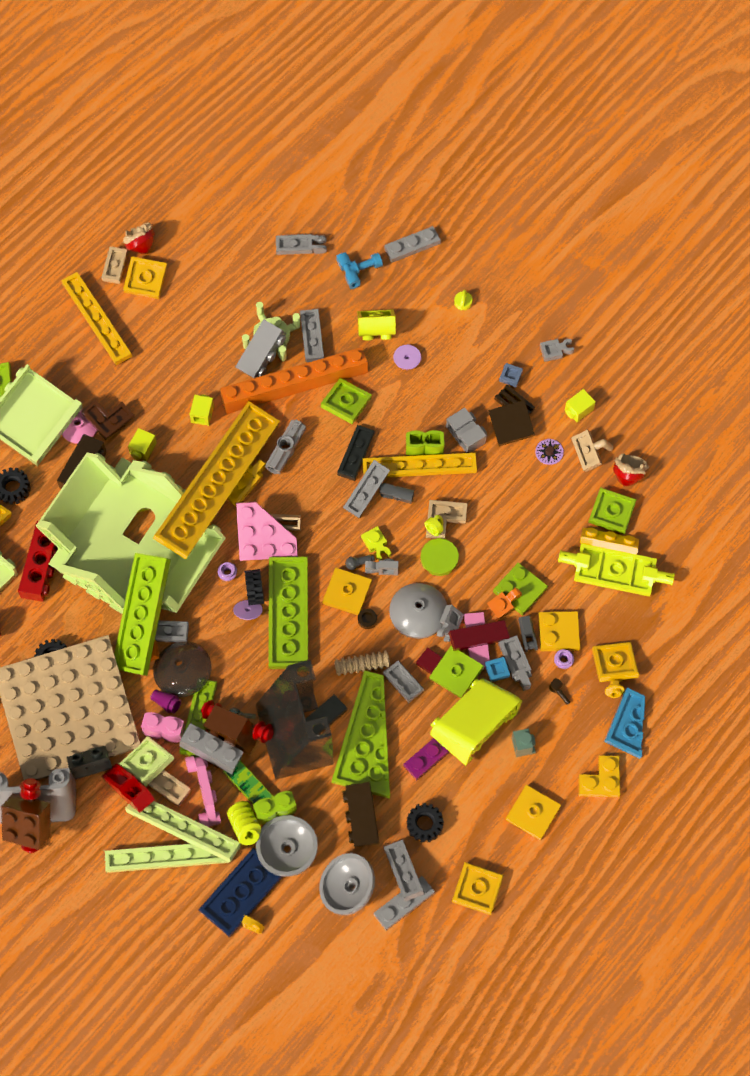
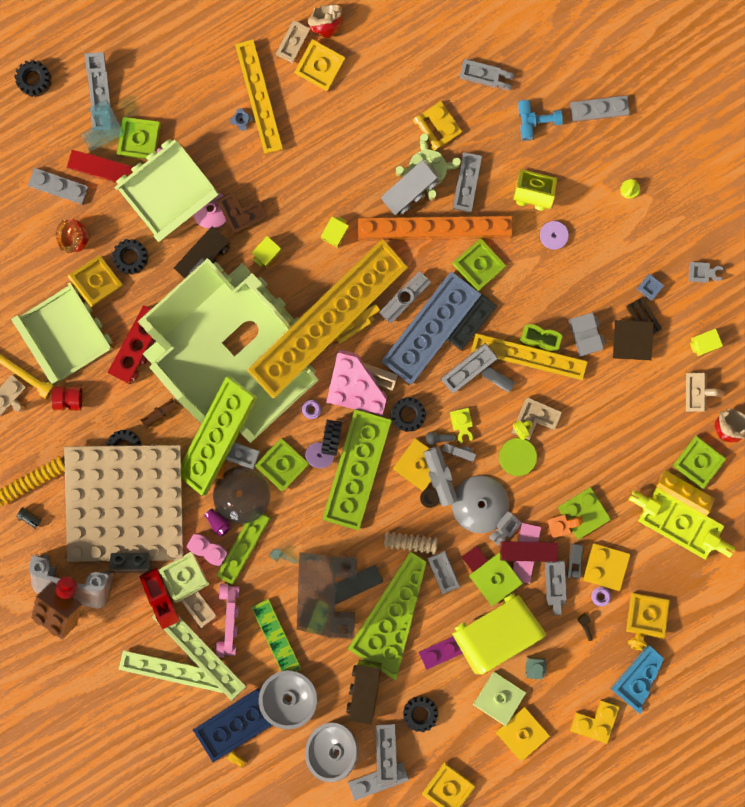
camera: 15 degrees right, 20 degrees up
(79, 617) = (159, 413): none -> reddish brown pin
(85, 337) = (240, 113): none -> sand blue plate
(211, 748) = (245, 588): light grey brick -> none
(213, 629) = (281, 465): none -> lime plate
(234, 728) = (269, 575): reddish brown brick -> none
(244, 823) = (255, 667): neon yellow piece -> none
(270, 808) = (280, 661): lime brick -> none
(272, 293) = (442, 122): none -> yellow plate
(318, 467) = (431, 328): none -> sand blue plate
(326, 558) = (396, 414): none -> black tyre
(370, 592) = (440, 476): none -> light grey piece
(497, 669) = (534, 590): dark azure tile -> none
(498, 784) = (499, 698): none -> yellowish green plate
(549, 451) = (660, 378): piece -> none

